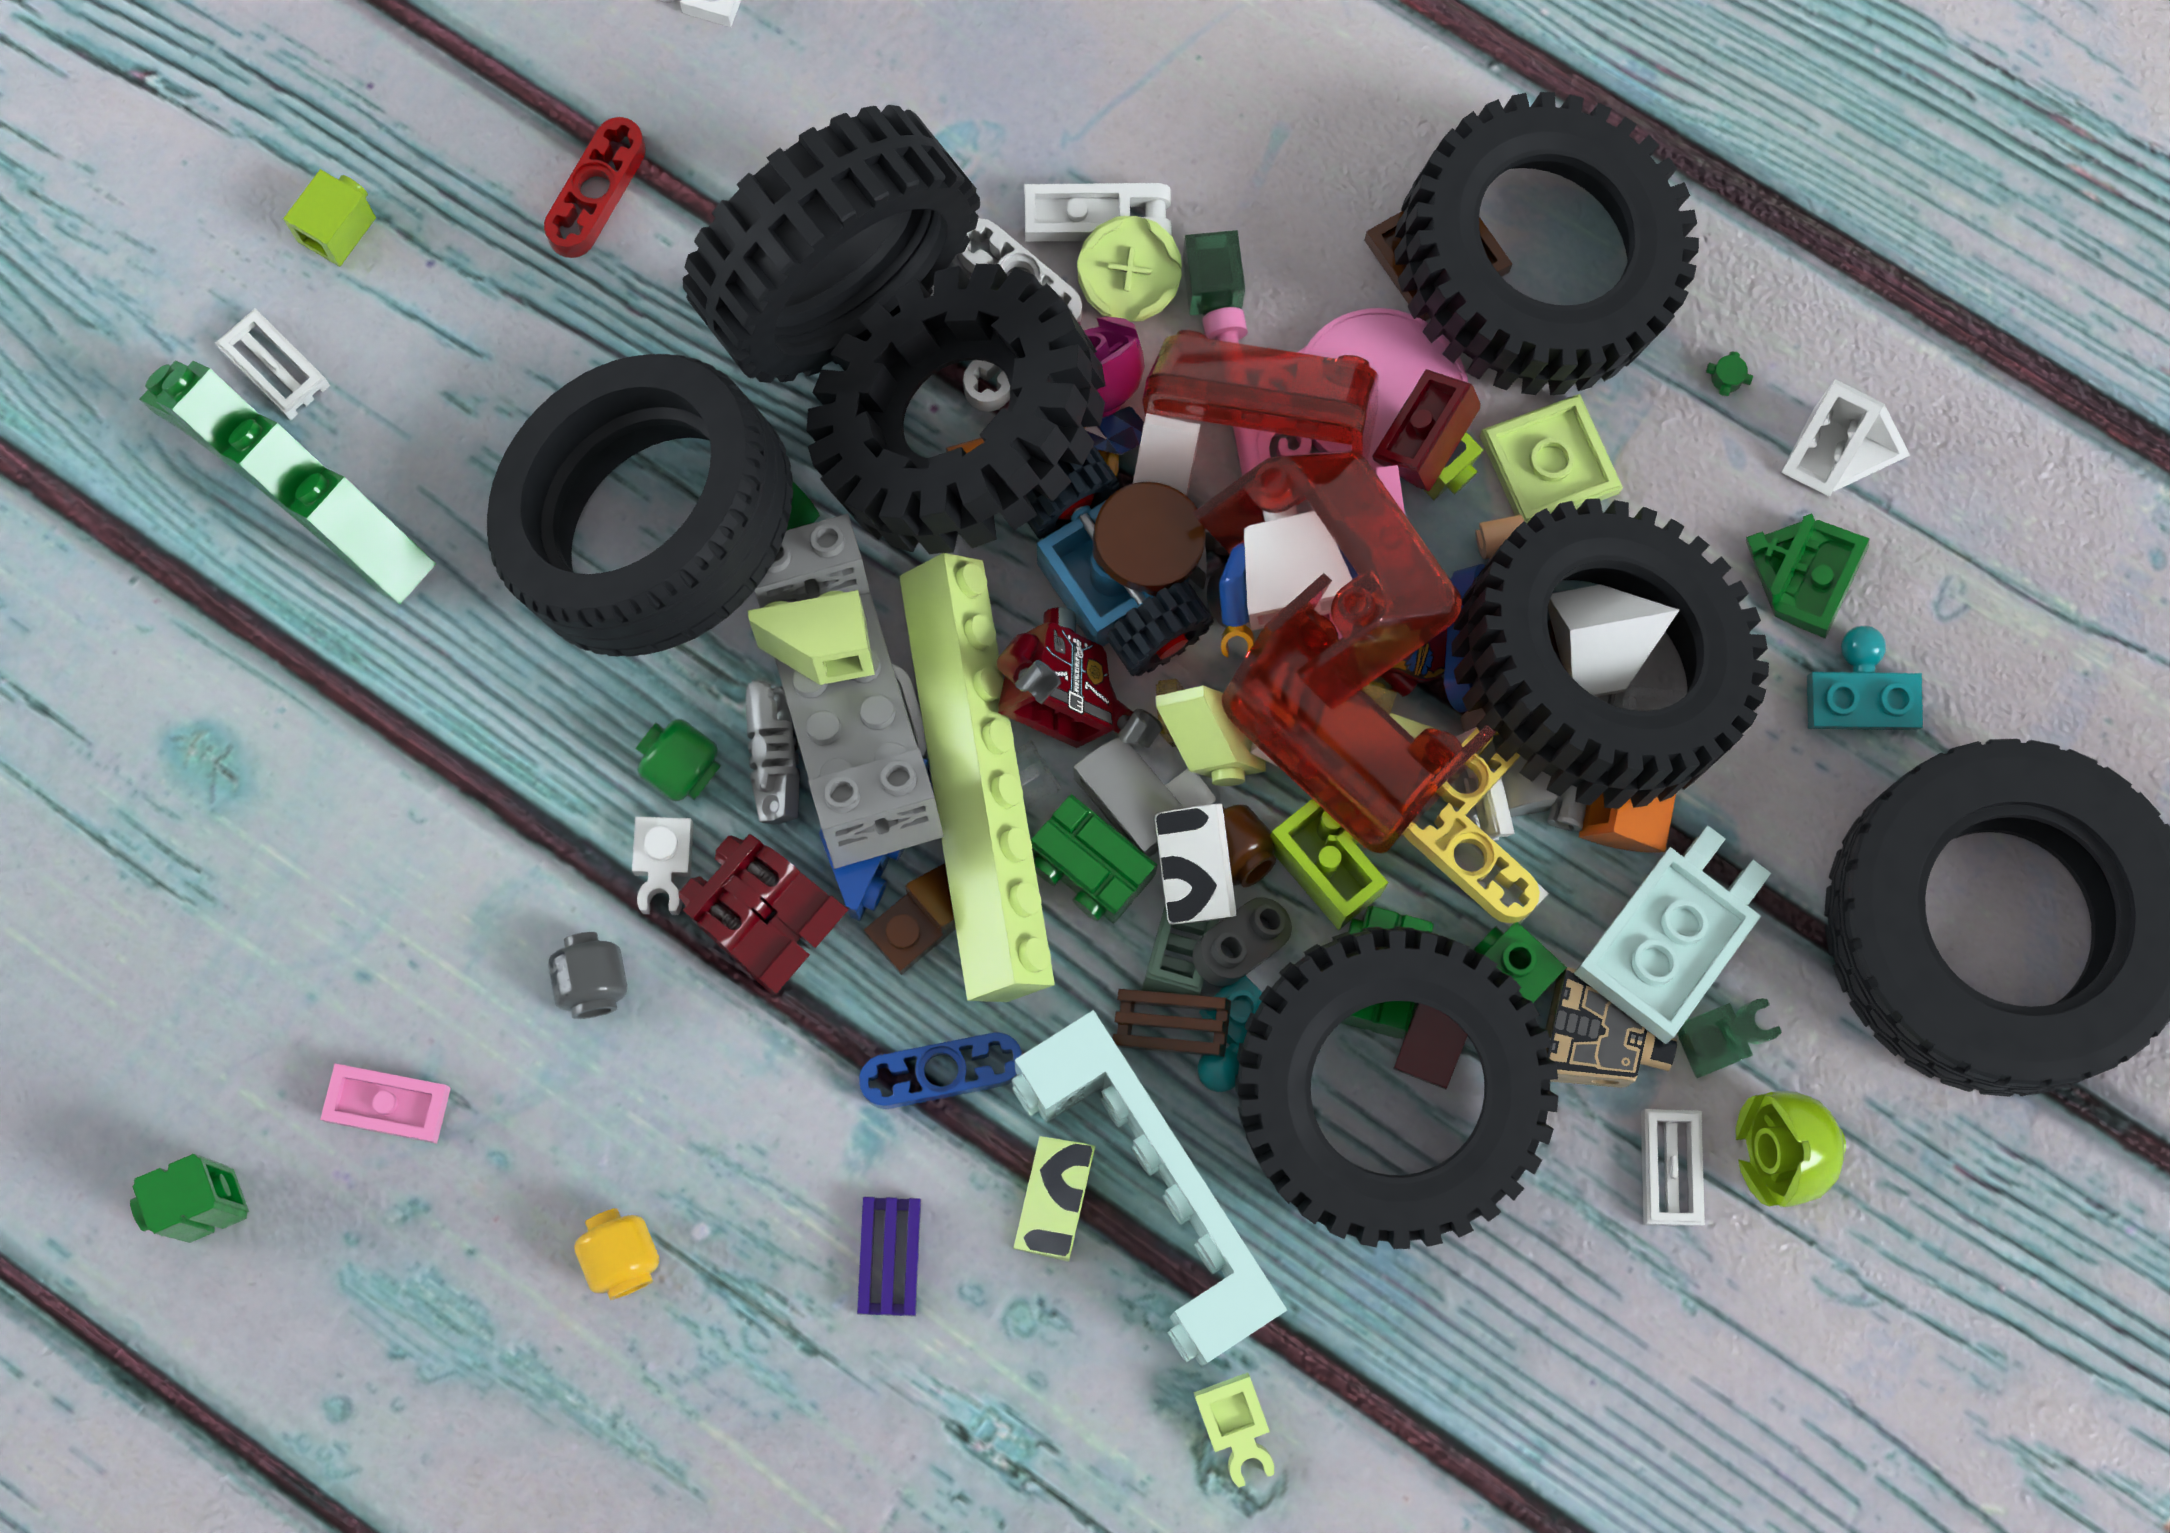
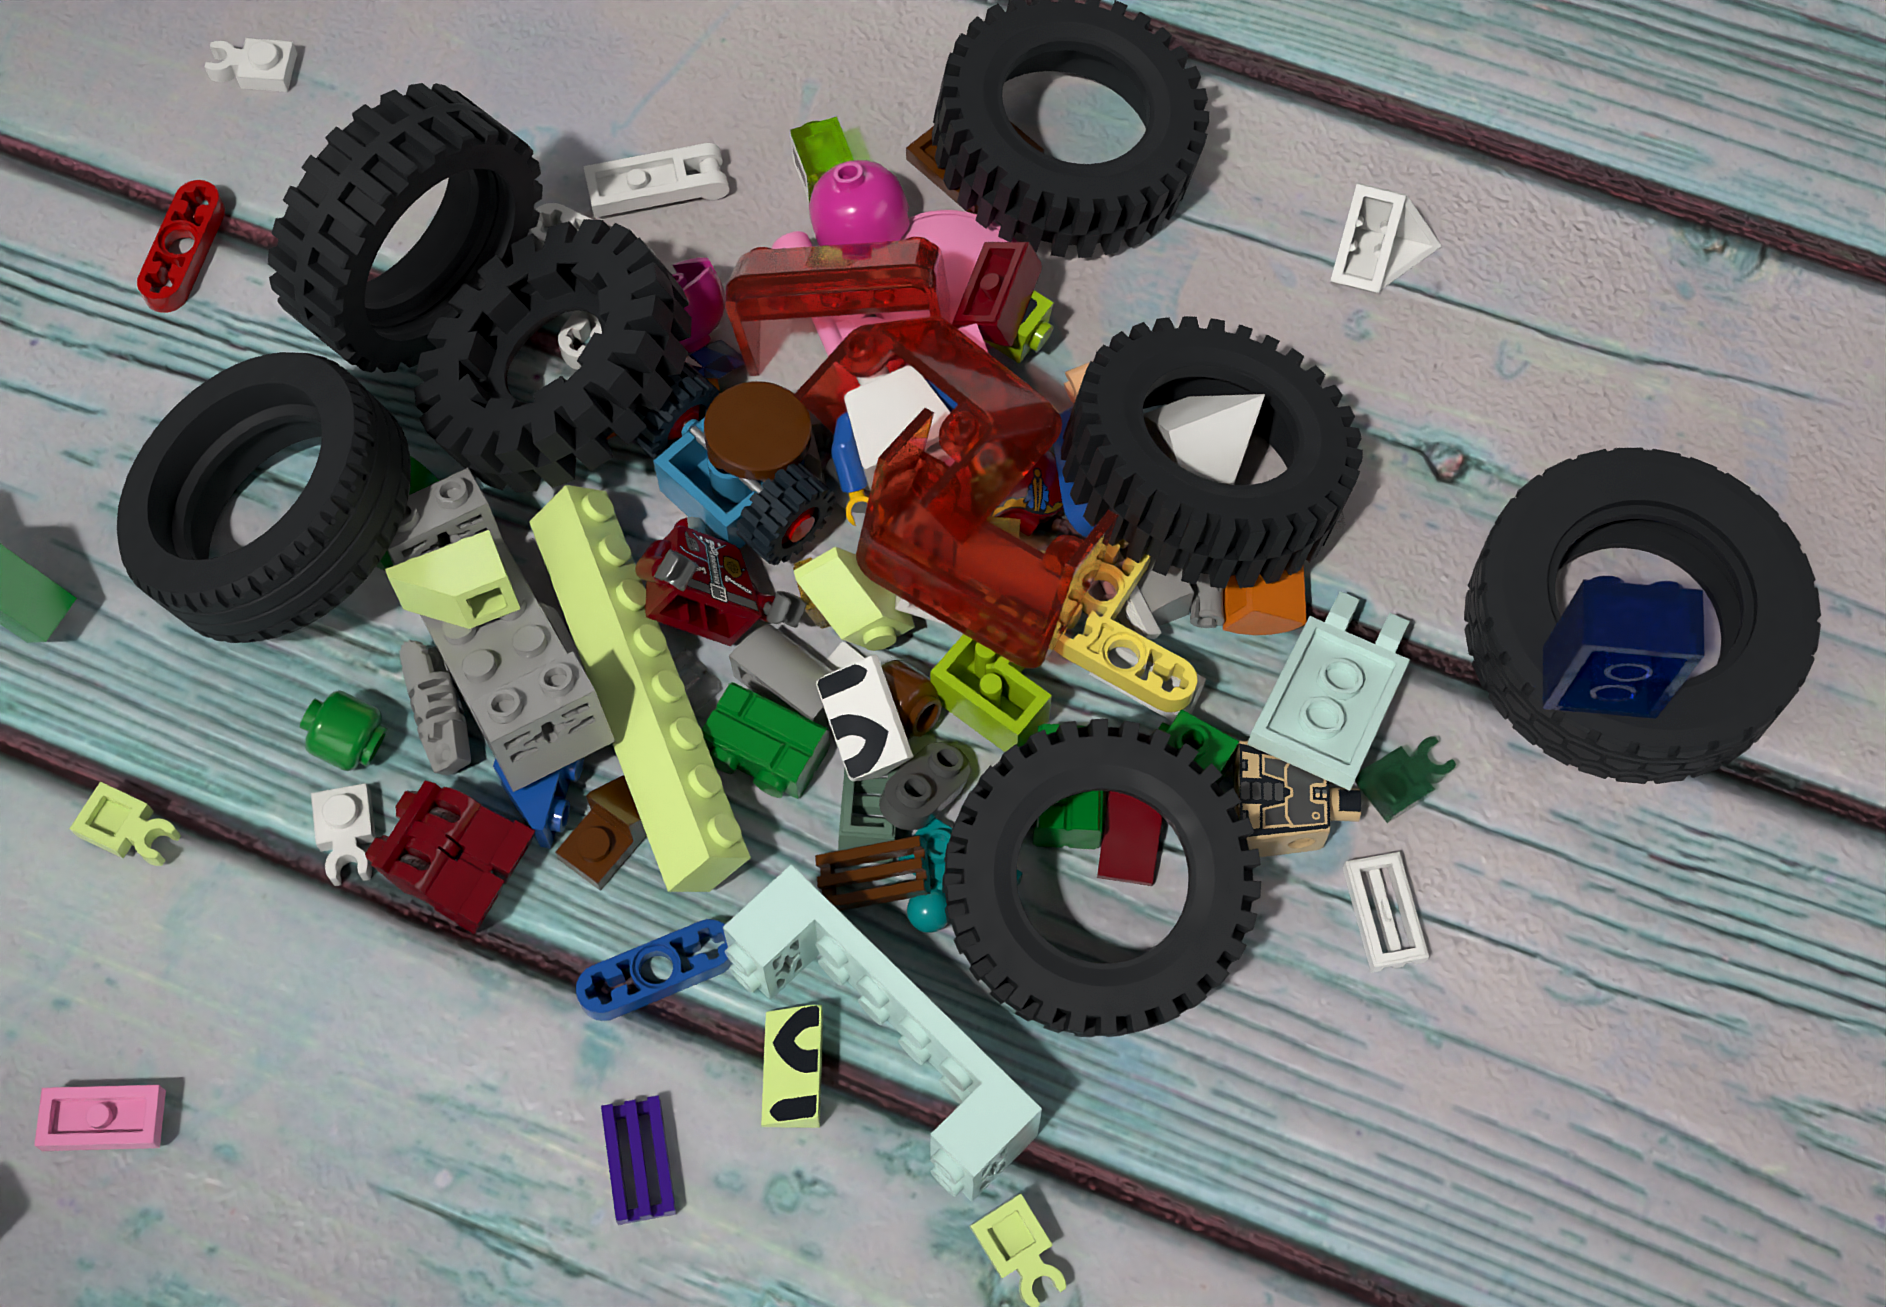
camera: 10 degrees left, 10 degrees down
(445, 806) = (119, 821): none -> yellowish green plate
(587, 976) = (287, 952): dark grey head -> none
(616, 1254) = (360, 1214): yellow head -> none
(1129, 268) = (694, 217): yellowish green tile -> none
(1167, 452) = (761, 353): white slope -> none
(1213, 271) = (772, 205): clear green brick -> none
(1276, 226) = (816, 149): none -> clear neon green brick
(1302, 294) = (858, 205): none -> dark pink cylinder
(1550, 458) = (1113, 301): yellowish green tile -> none
(1729, 373) = (1262, 207): green piece -> none
(1791, 1148) = (1491, 863): lime cylinder -> none
(1807, 570) = (1375, 358): green slope -> none
(1864, 697) = (1453, 454): teal plate -> none
(1977, 977) = (1623, 647): none -> clear blue brick

